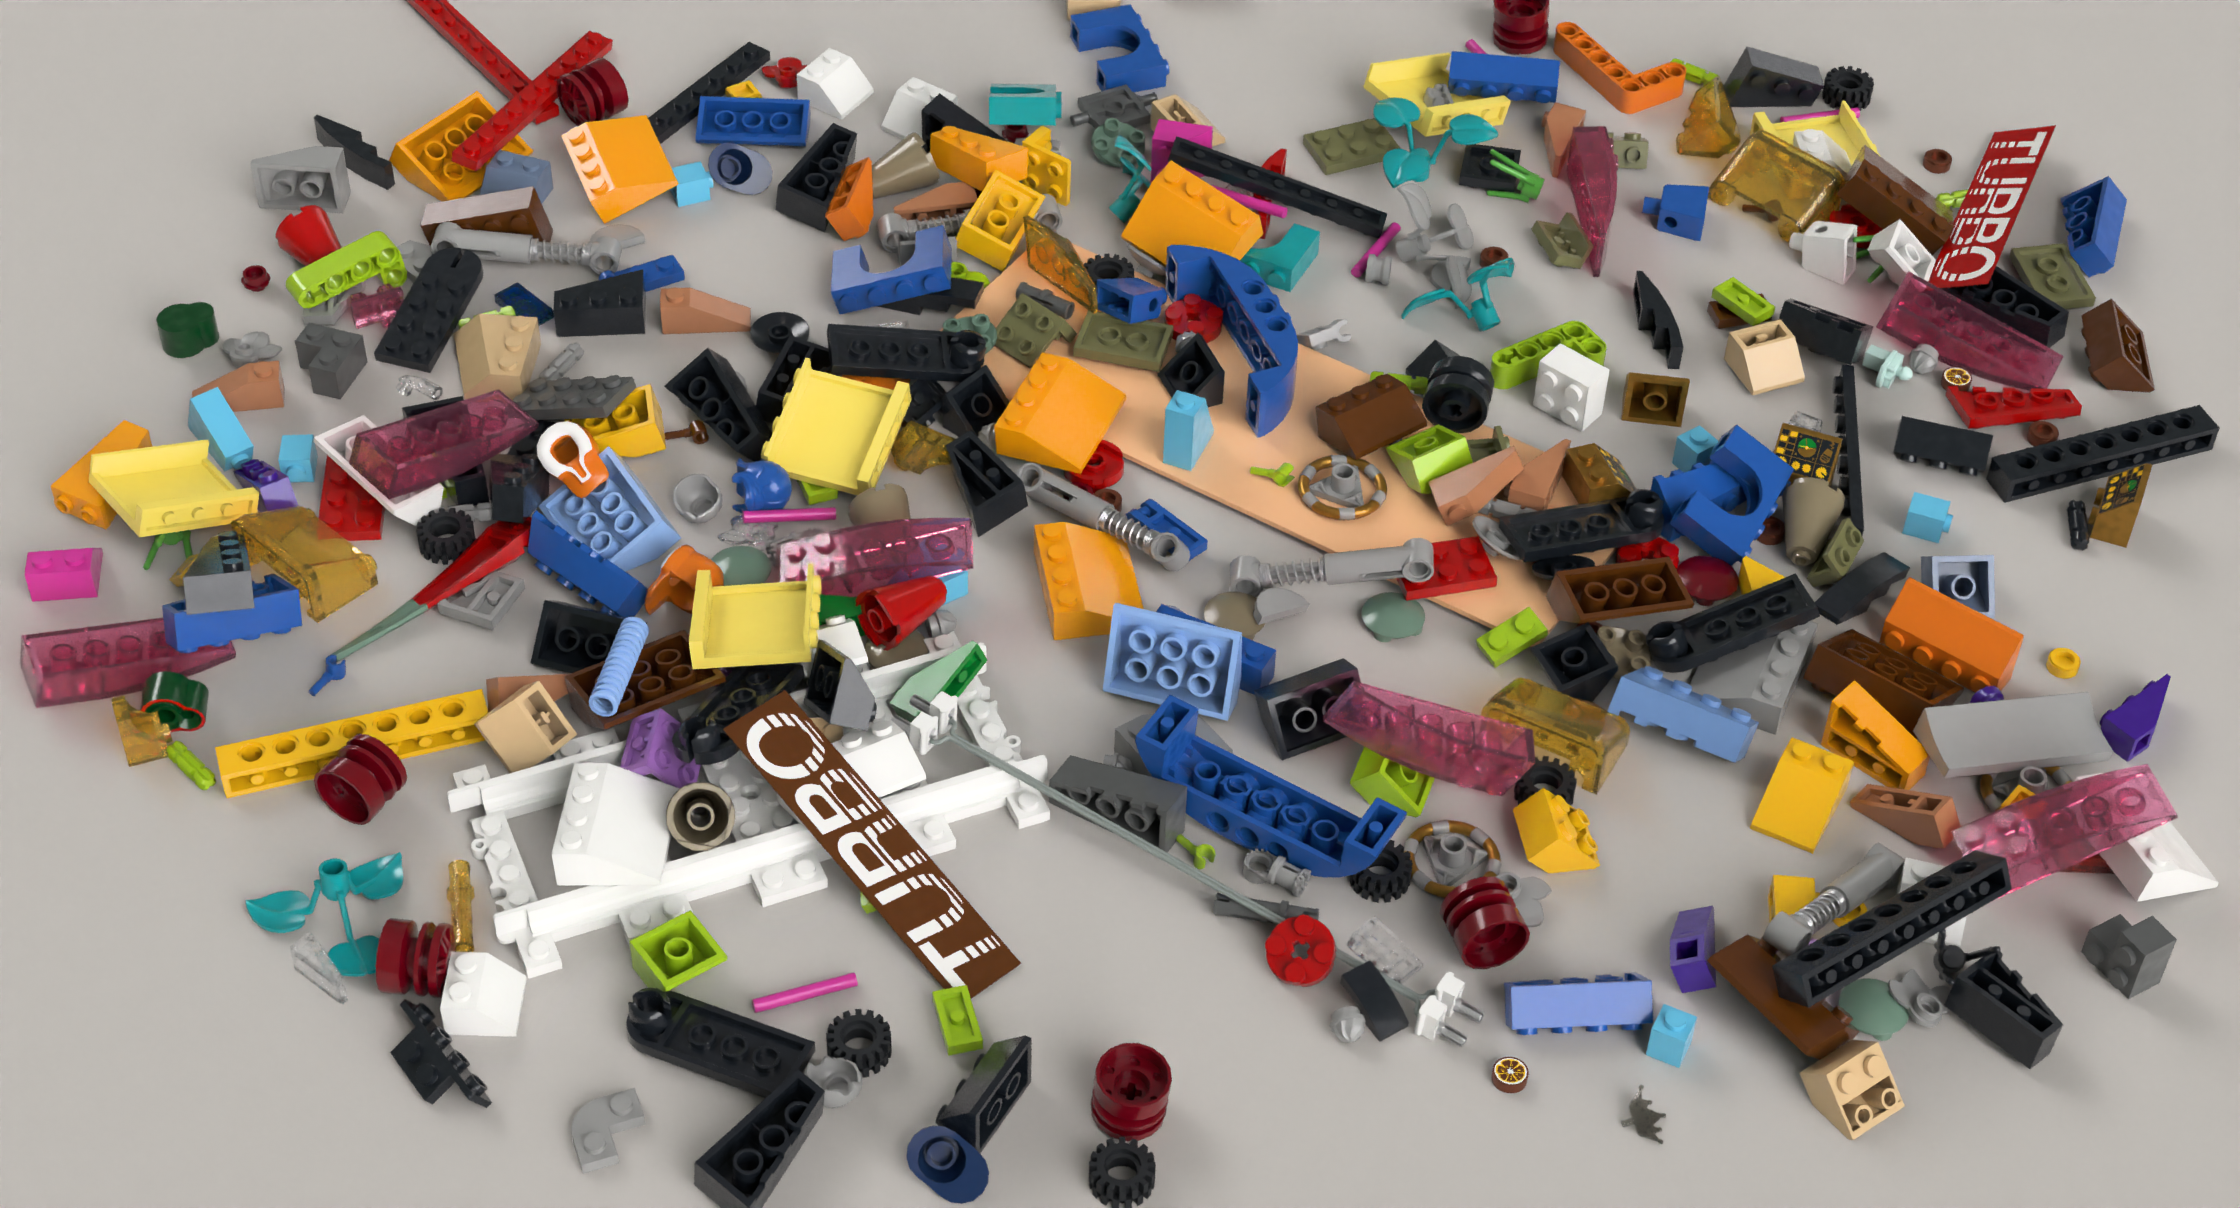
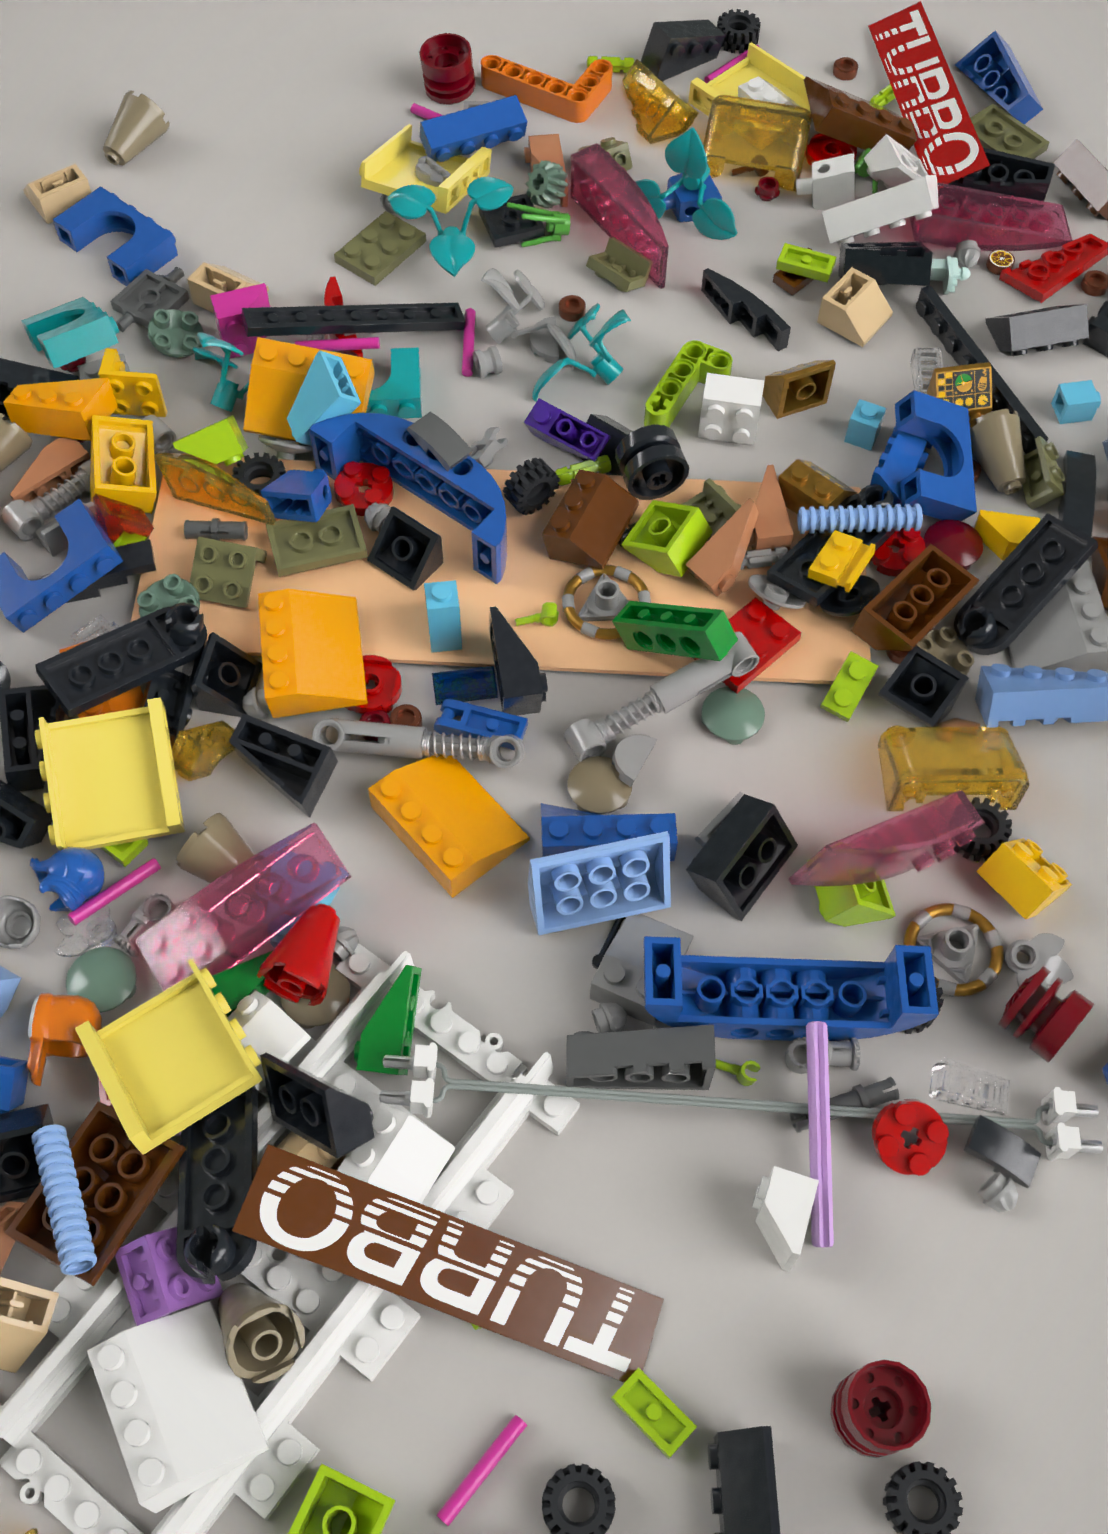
camera: 30 degrees left, 15 degrees up
(969, 255) = (120, 517): none -> clear red slope
(1088, 230) = (215, 442): none -> lime slope
(1158, 943) = (784, 1212): none -> white slope
(1177, 499) = (465, 685): none -> clear blue tile
(1198, 225) = (323, 395): none -> medium azure slope
(1213, 500) = (517, 671): none -> black slope
(1224, 910) = (819, 1133): none -> lavender axle
(1270, 296) = (440, 439): none -> dark grey slope
(1333, 359) = (531, 486): none -> black tyre
(1372, 516) = (675, 630): none -> green brick
(1401, 343) = (565, 431): none -> dark purple slope
(1539, 147) = (546, 184): none -> sand green gear
(1571, 533) = (841, 561): none -> yellow plate
(1614, 509) = (860, 518): none -> light blue piece
(1666, 161) = (687, 156): none -> teal plant
(1765, 232) = (767, 188): none -> dark red plate
(1851, 282) = (882, 209): none -> white slope

